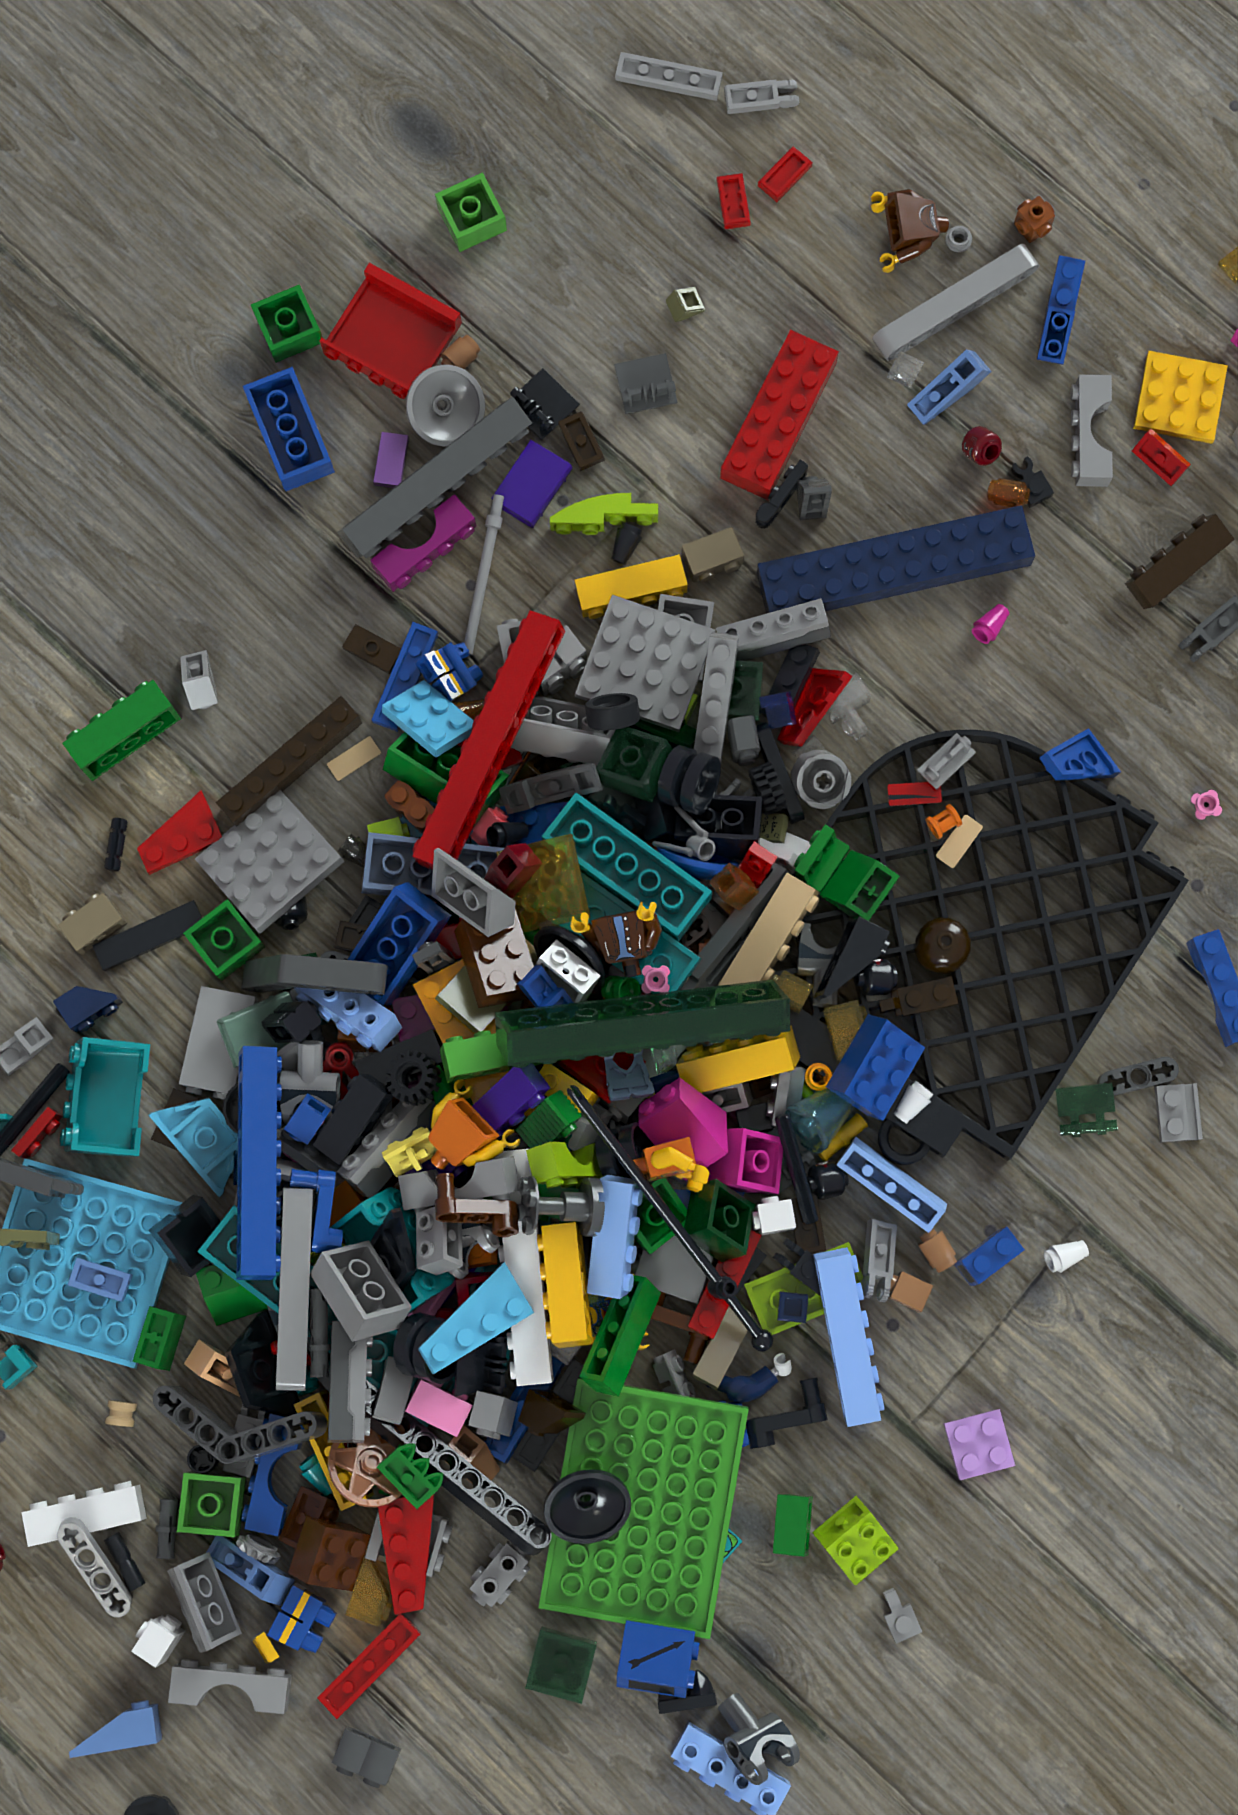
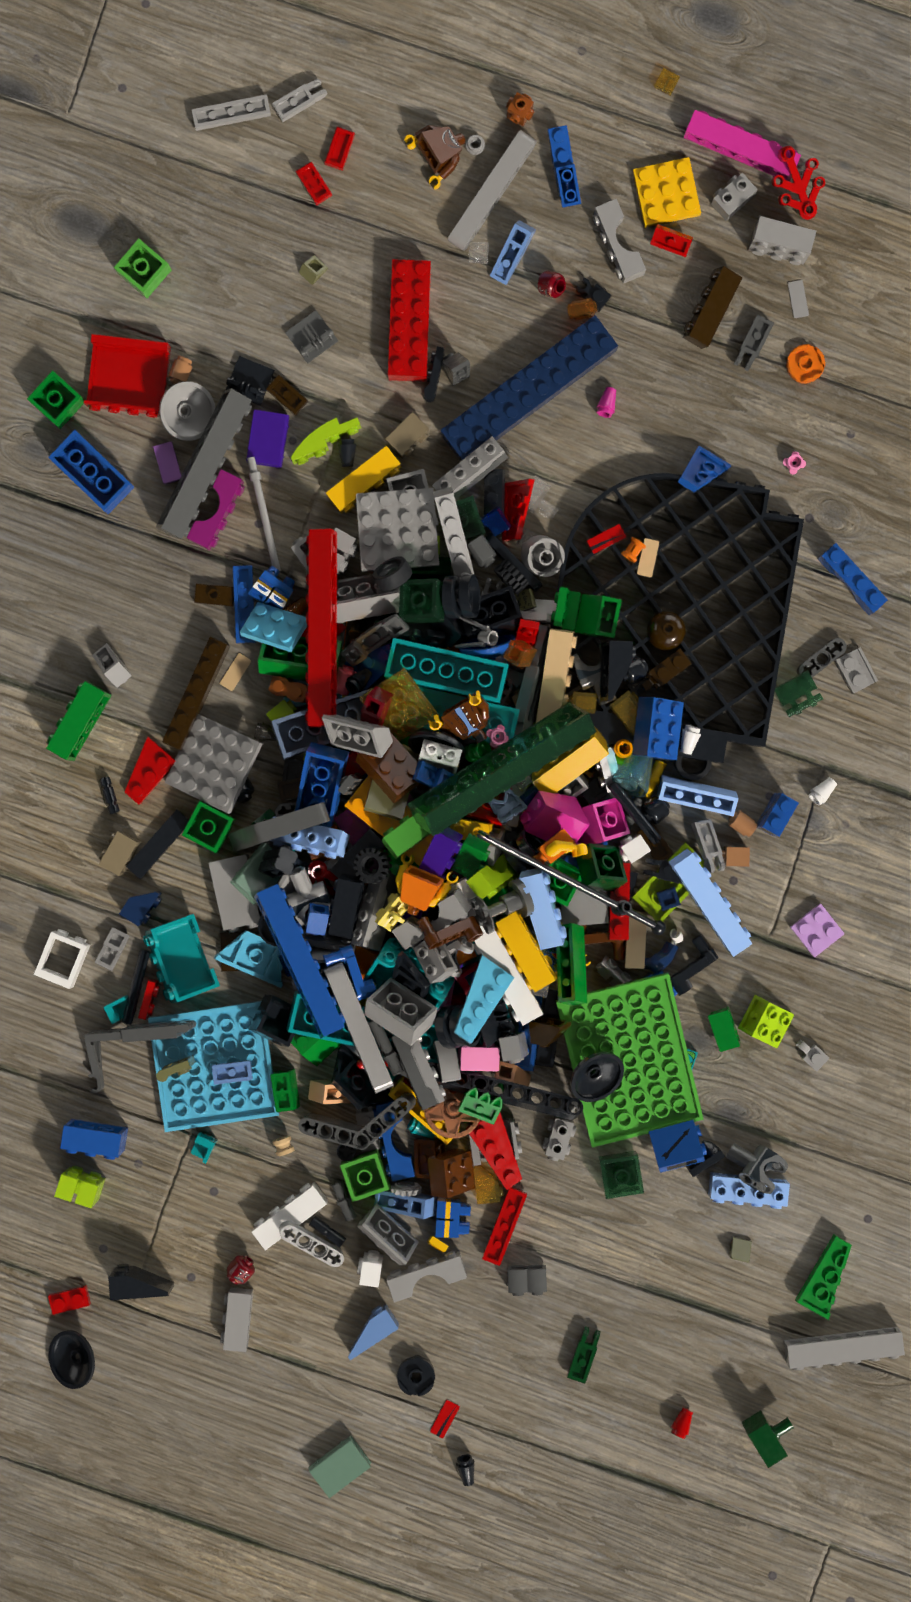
camera: 25 degrees left, 10 degrees up
(947, 760) = (618, 508): light grey hinge -> none

